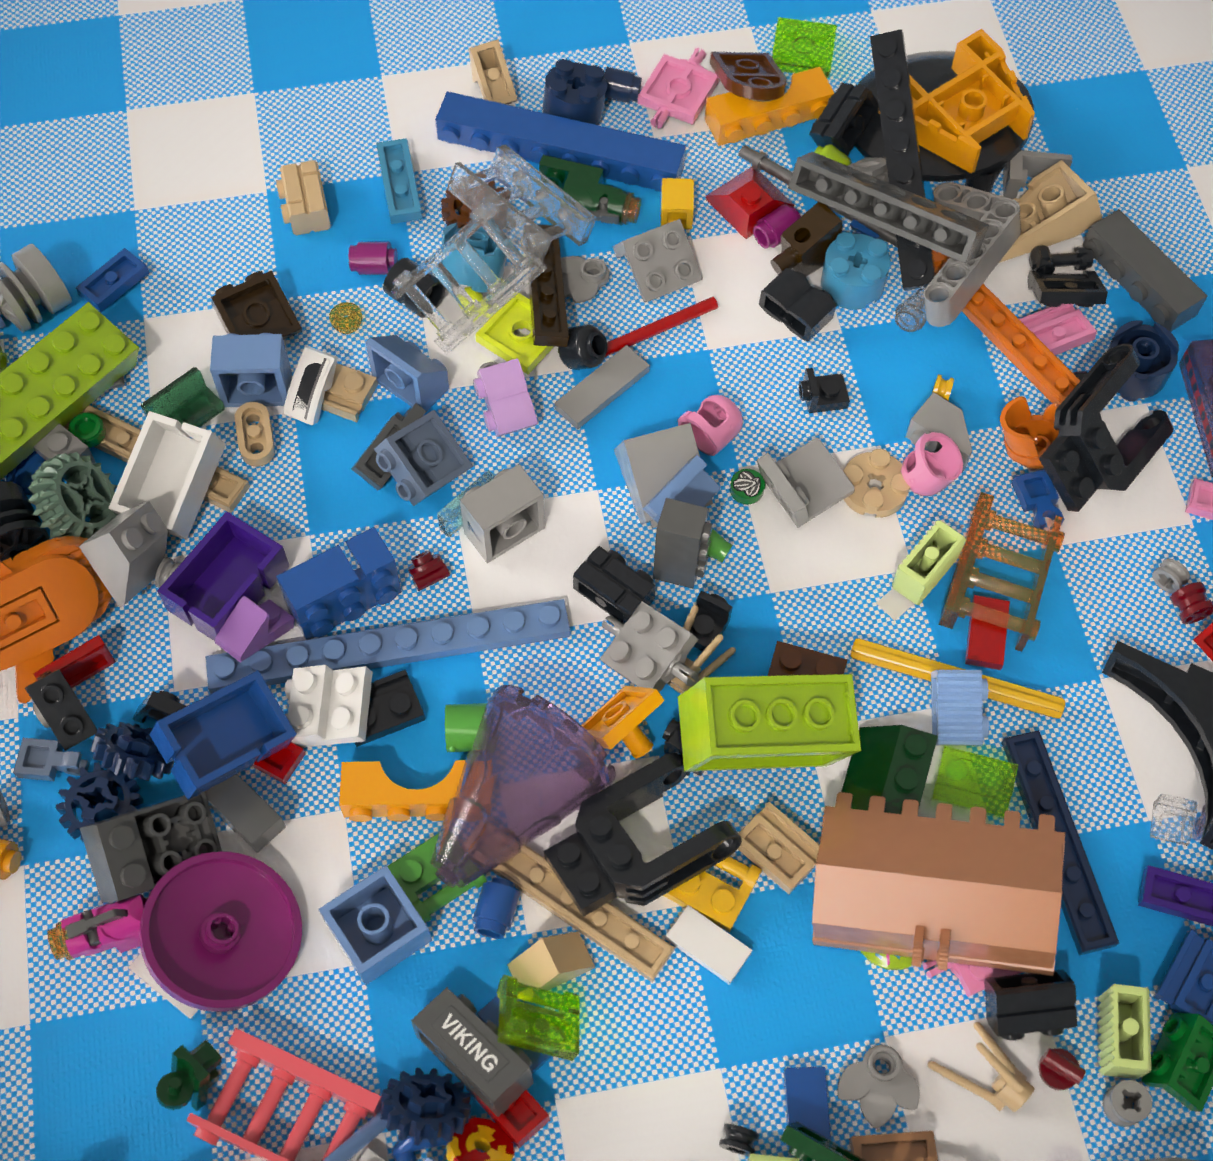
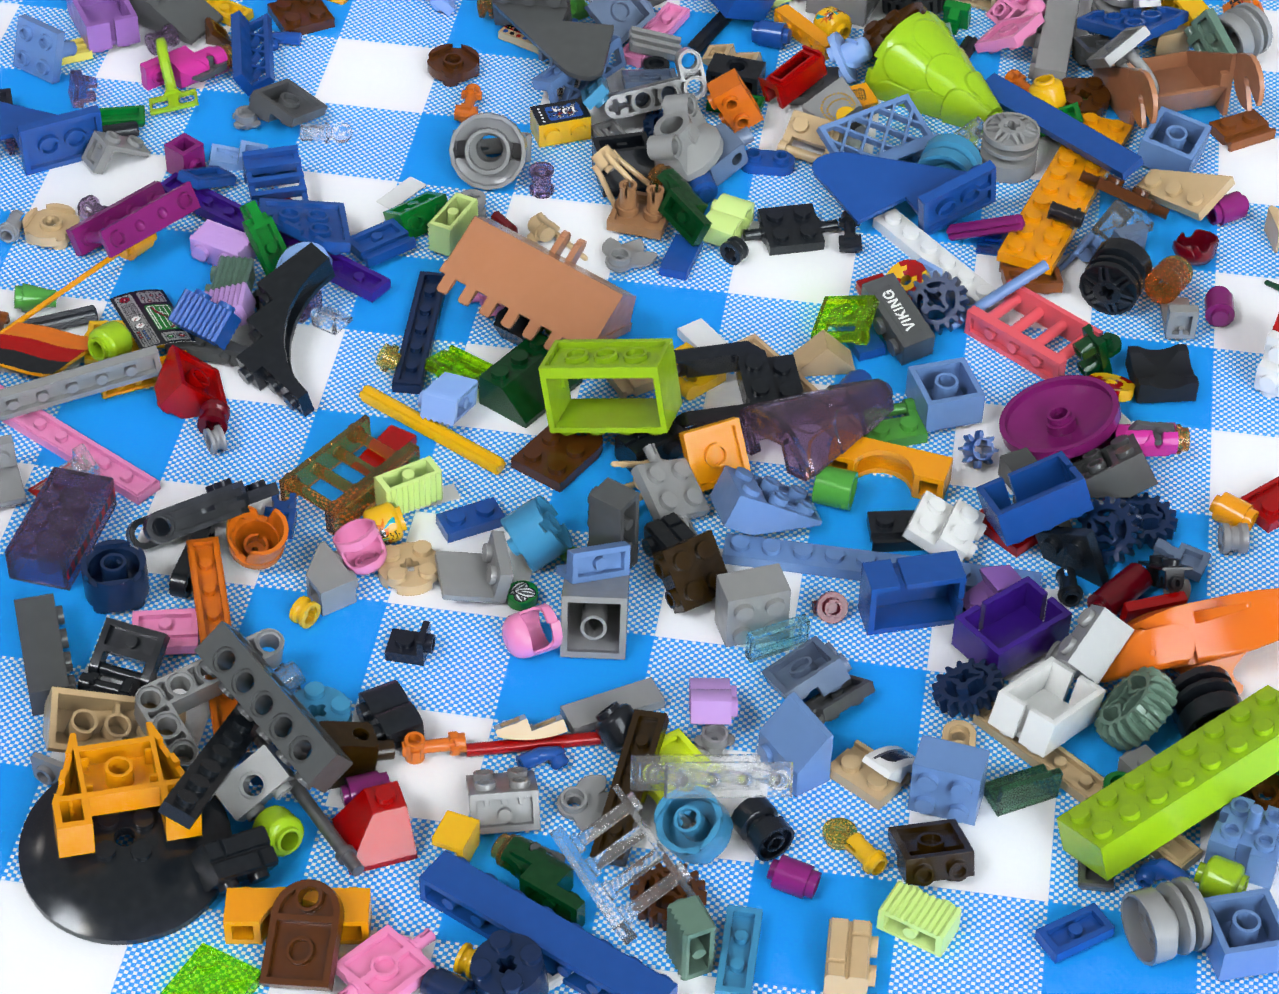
camera: 160 degrees left, 20 degrees down
(99, 1082) = (1162, 374): none -> black brick
(116, 682) = (1123, 587): none -> dark red brick
(148, 1029) = (1121, 385): none -> yellow piece
(174, 677) = (1069, 591): none -> black pin
(252, 248) = (919, 918): none -> yellowish green brick
(257, 495) = (967, 688): none -> dark blue gear
(315, 850) = (986, 446): none -> blue gear
(316, 302) = (872, 860): none -> yellow pin
(436, 155) = (690, 937): none -> sand green brick
(546, 661) = (761, 504): none -> medium blue slope
(583, 537) = (690, 571): none -> dark brown plate
(615, 112) = (463, 959): none -> yellow bush
(641, 314) = (540, 755): none -> blue arm
(665, 329) = (519, 728): none -> slope
(727, 297) = (415, 746): none -> orange bar
(761, 532) = (536, 533): none -> dark azure brick
(847, 567) = (470, 520): none -> blue plate
(925, 511) = (388, 520): none -> yellow head
(1065, 765) = (388, 357): none -> clear yellow plate

